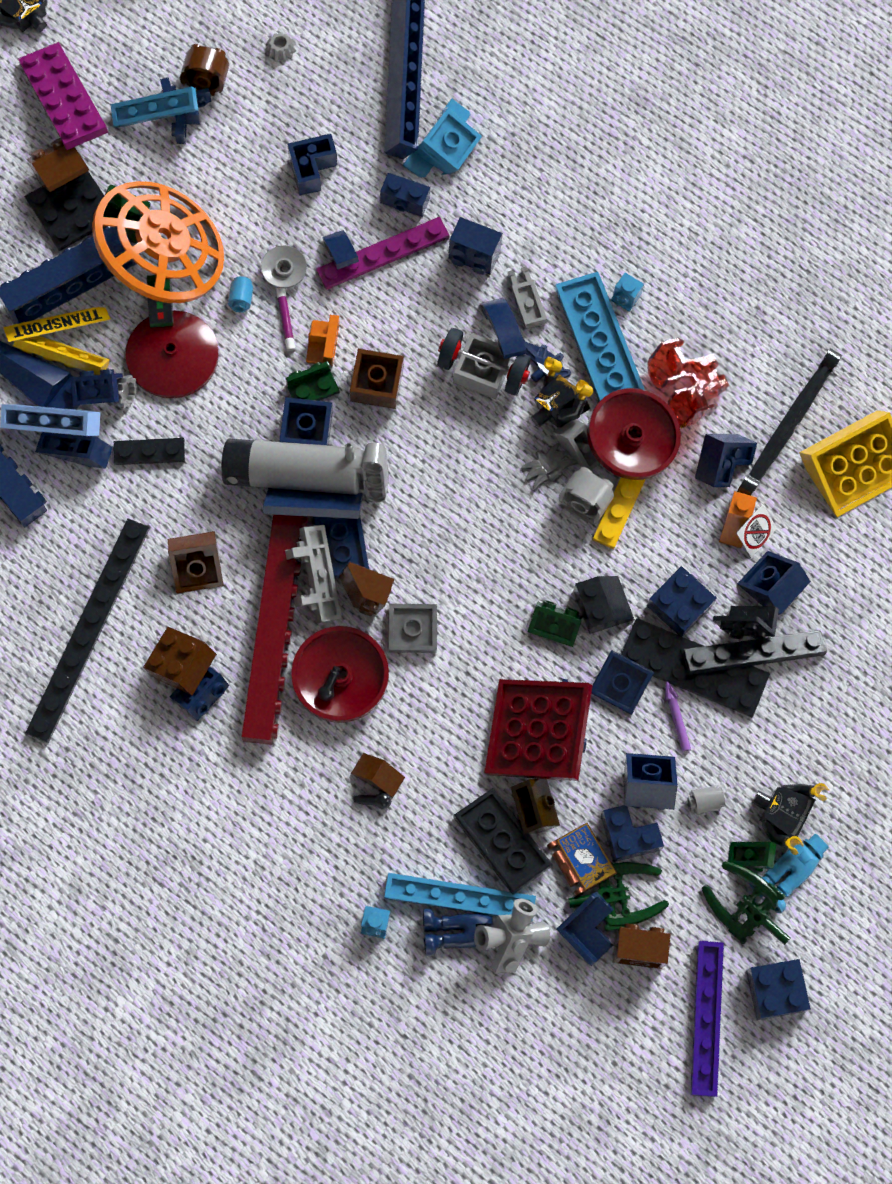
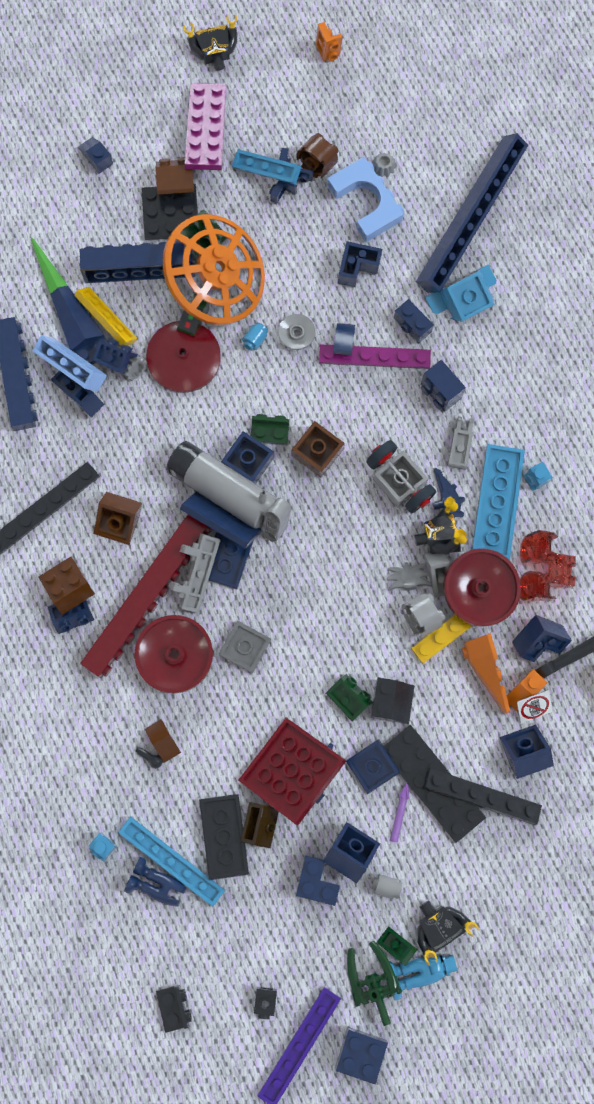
camera: 30 degrees right, 5 degrees up
(56, 323) = (113, 293): yellow sticker -> none
(149, 451) = (129, 420): black plate -> none
(264, 69) = (362, 175): none -> light blue arch
(285, 319) = (278, 370): magenta bar -> none
(323, 340) = (295, 401): orange panel -> none
(326, 691) = (157, 661): black piece -> none
(366, 588) = (225, 602): reddish brown slope -> none
(505, 327) = (429, 458): dark blue slope -> none
(512, 936) = (190, 912): light grey brick -> none
(549, 1052) = (173, 1009): none -> black bracket
(582, 859) = (273, 881): piece -> none
(582, 931) = (243, 935): dark blue panel -> none
(618, 894) = (277, 918): dark green bar -> none
(636, 985) = (269, 995): none -> black brick
(641, 947) = (278, 970): reddish brown brick -> none
(673, 508) = (482, 659): none -> orange wedge
(681, 601) = (449, 730): dark blue brick -> none
(749, 621) = (491, 771): black bracket -> none

